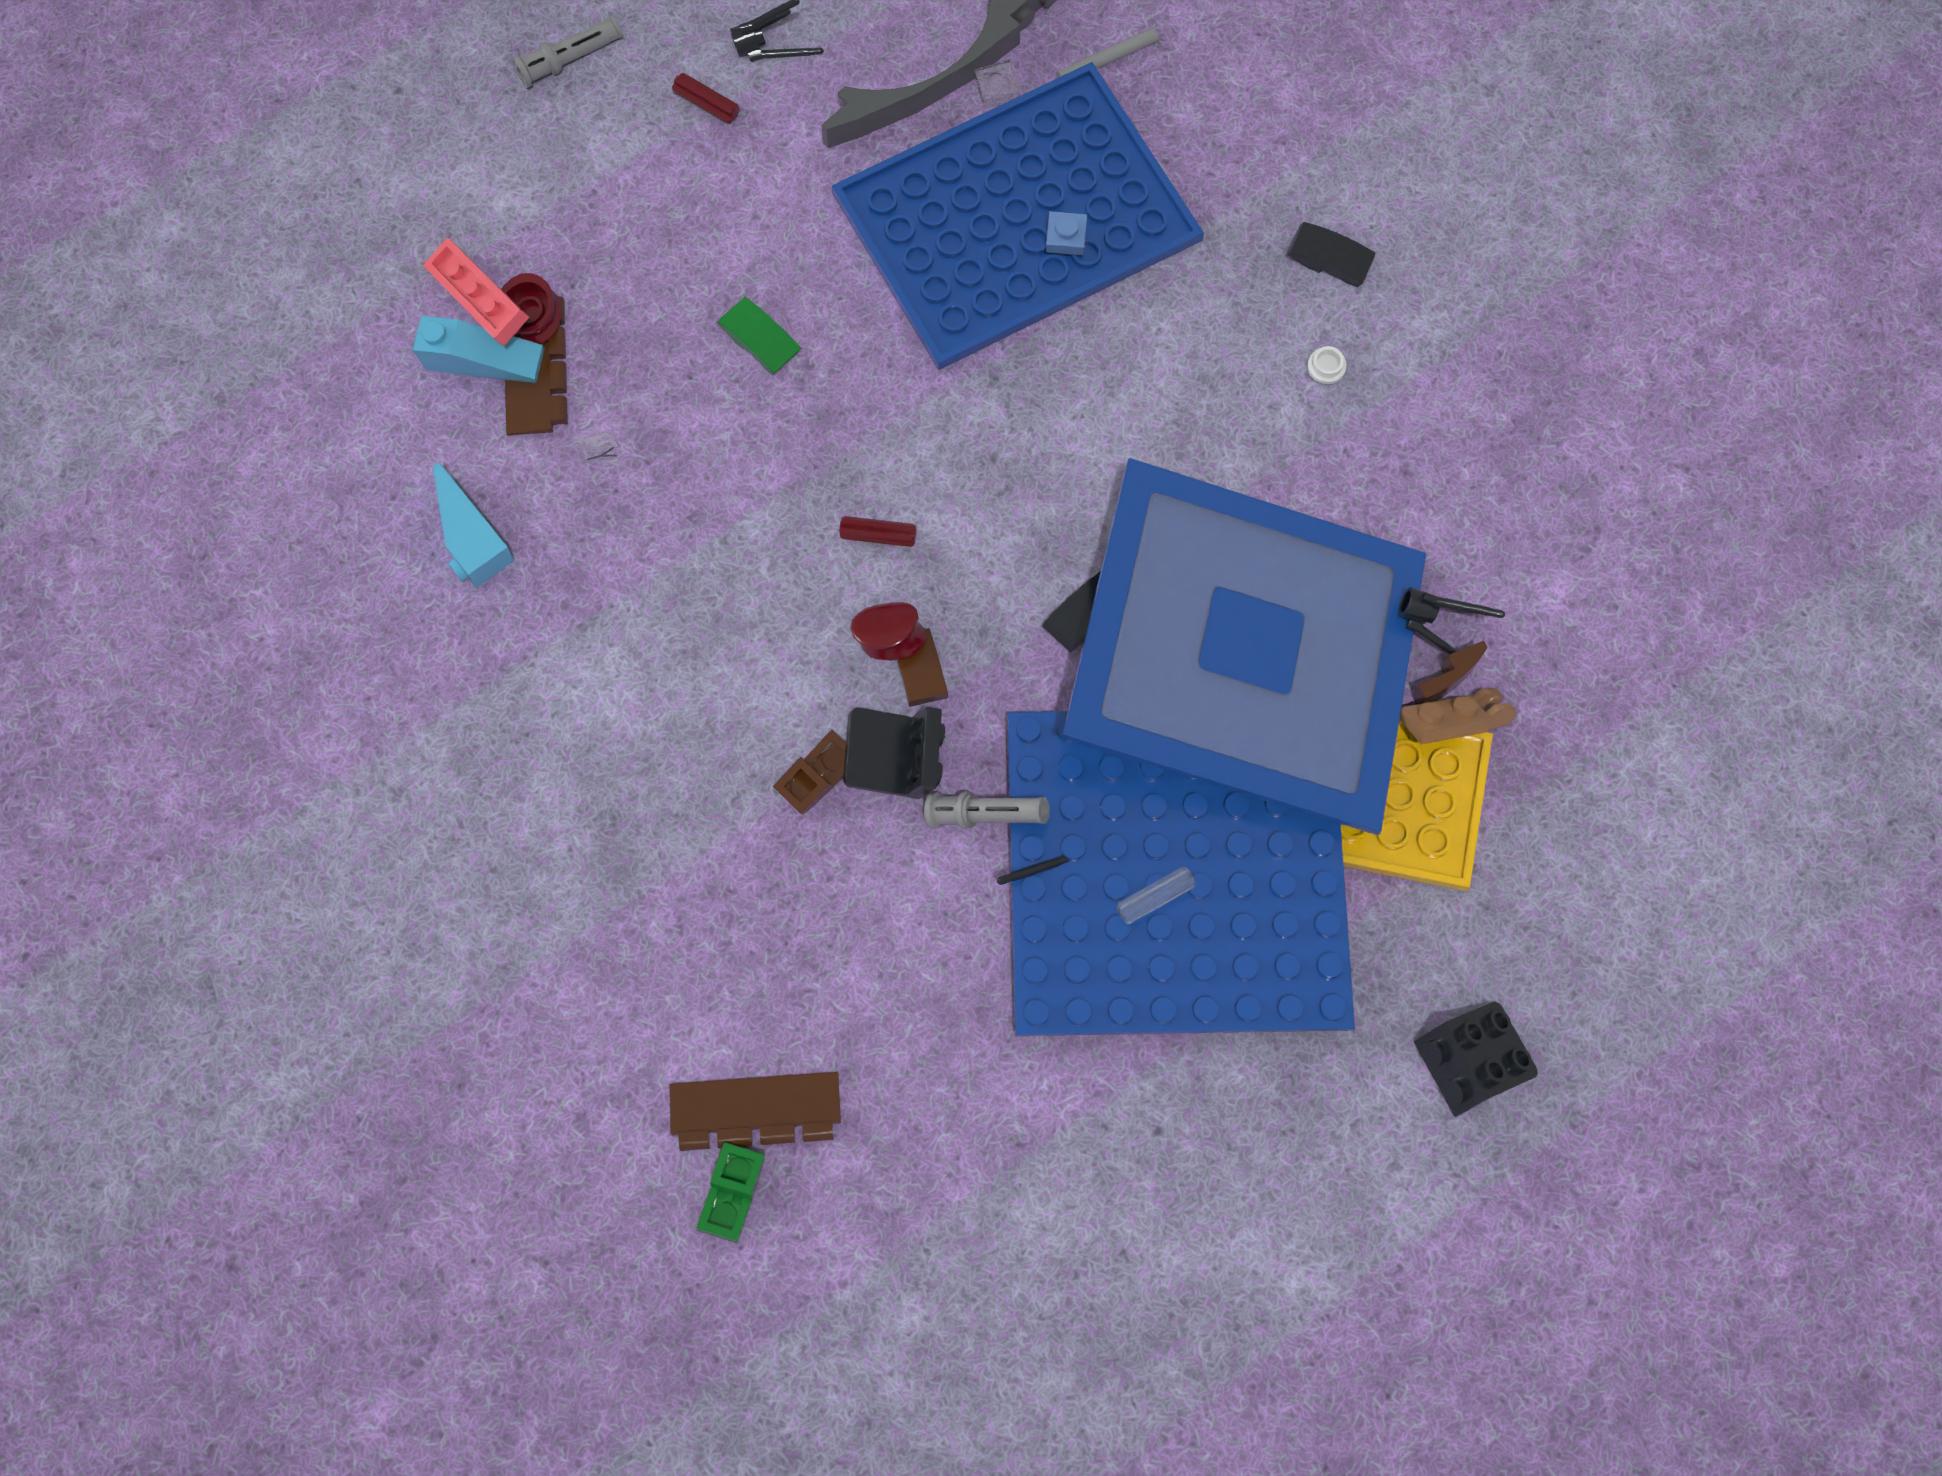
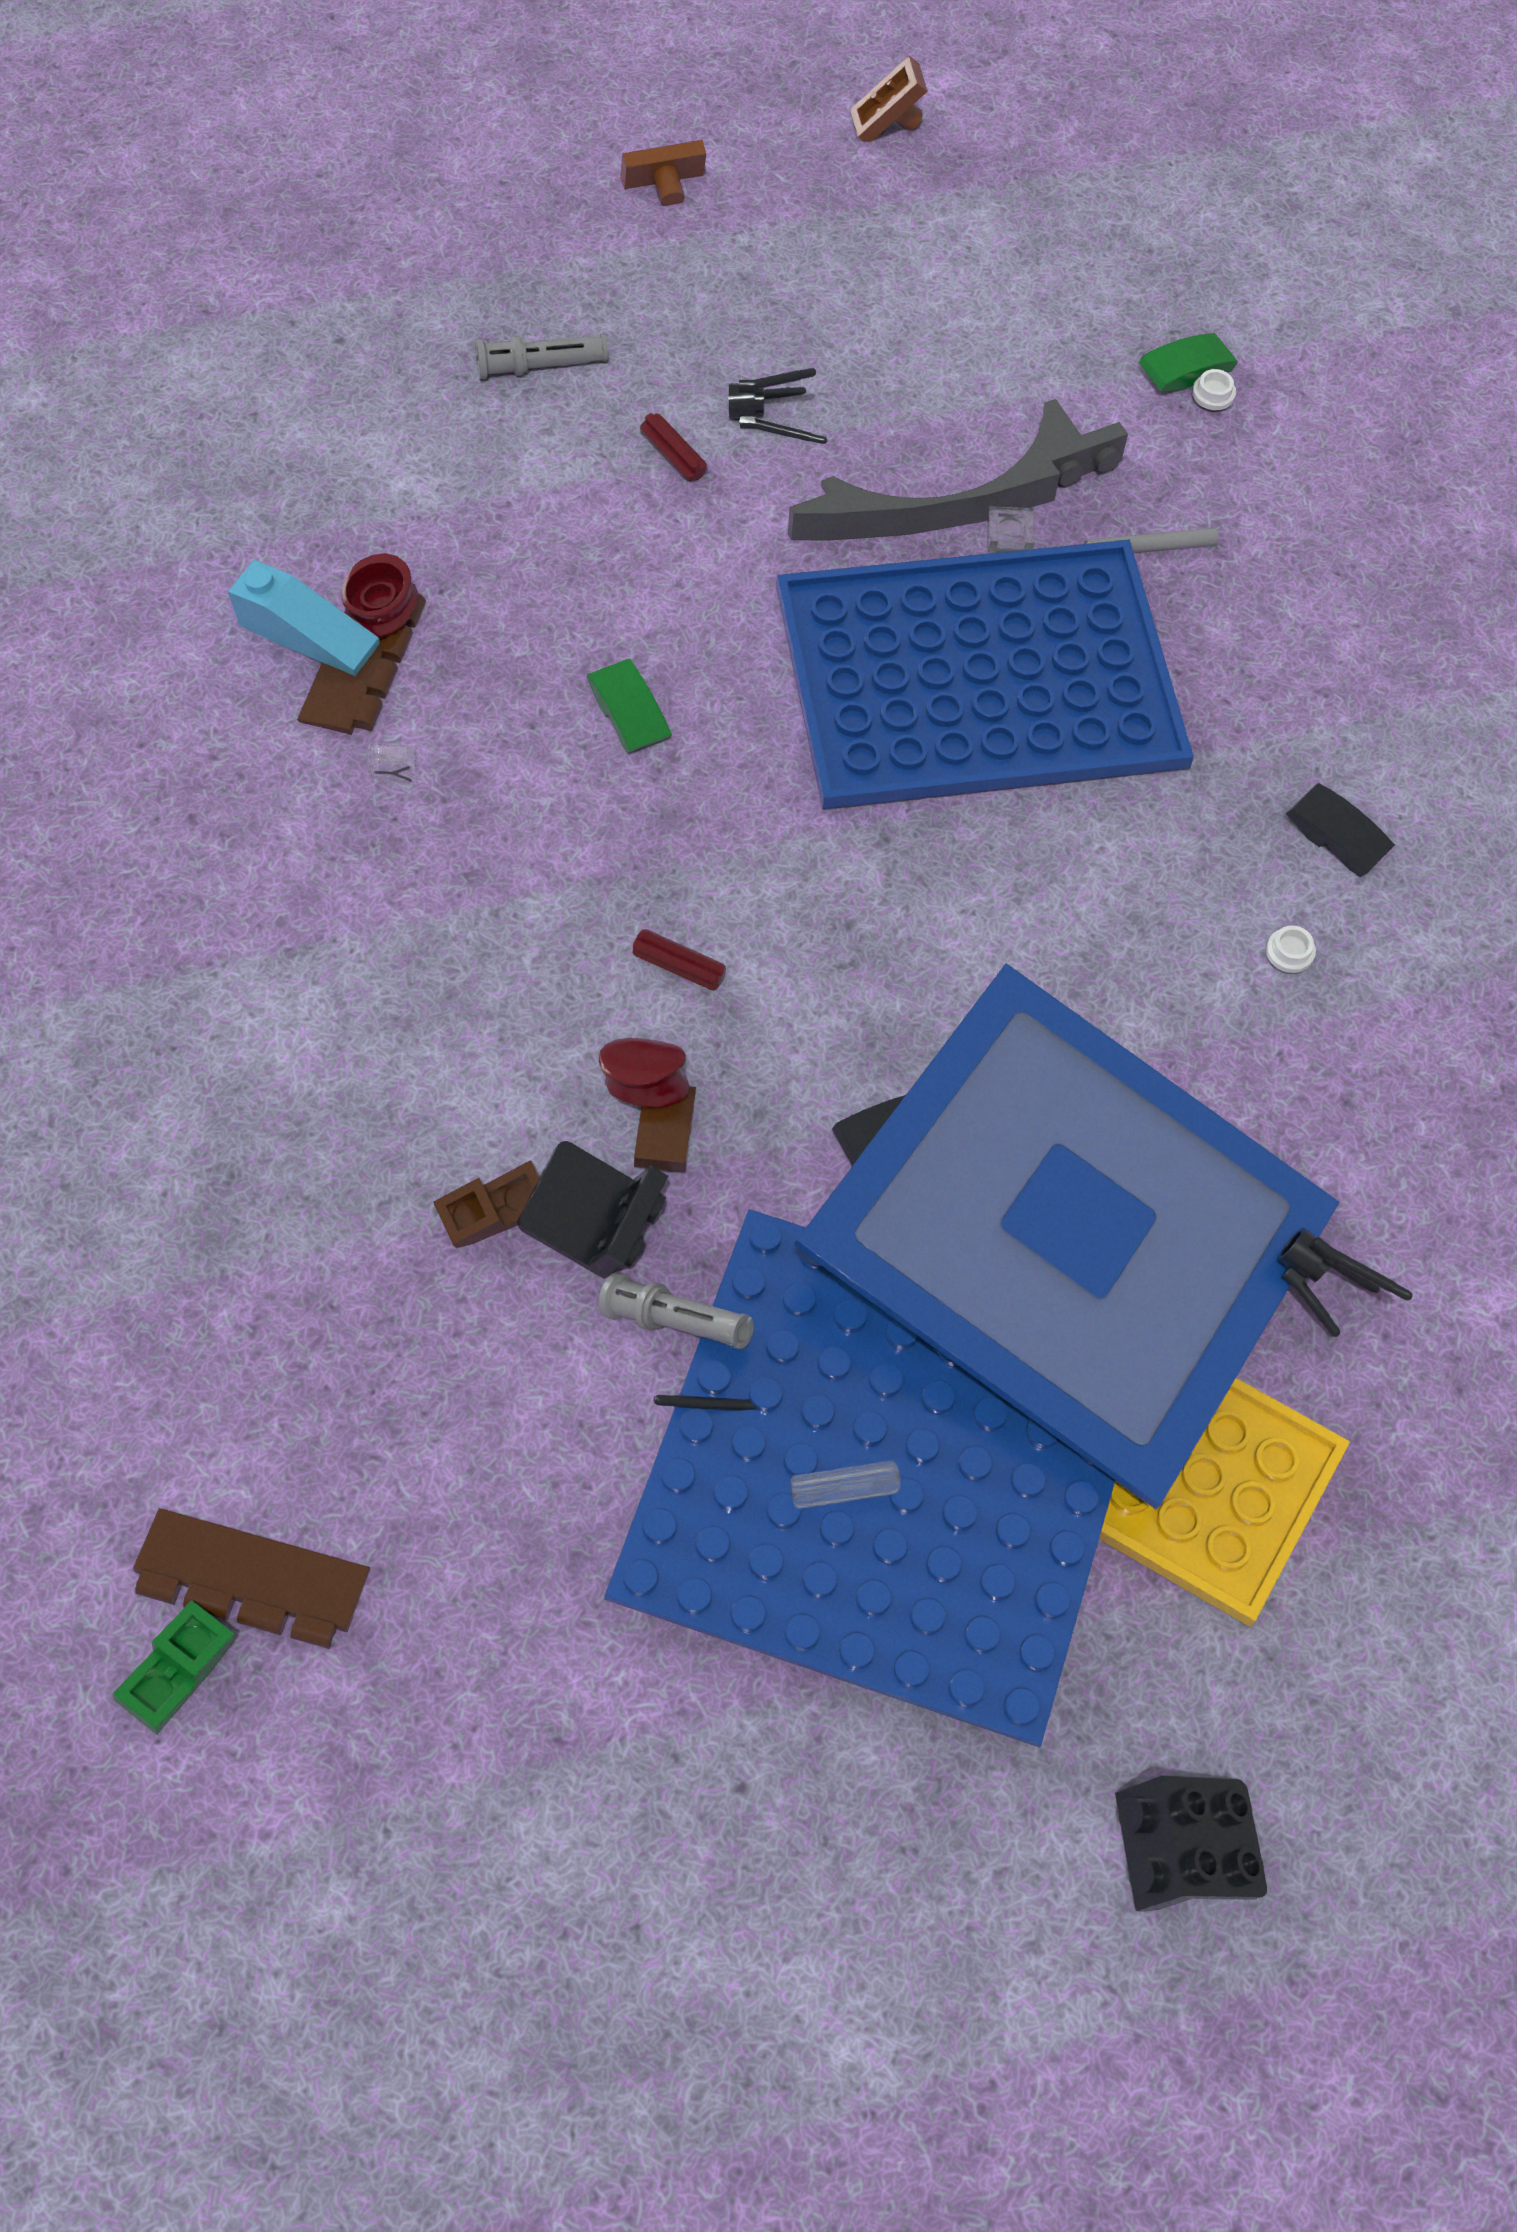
camera: 15 degrees right, 10 degrees down
(469, 538) = (202, 808): medium azure slope -> none
(476, 291) = (327, 557): coral plate -> none
(1066, 233) = (1028, 705): medium blue plate -> none
(1455, 669) = (1329, 1351): reddish brown slope -> none
(1457, 716) = (1311, 1404): medium nougat hinge -> none

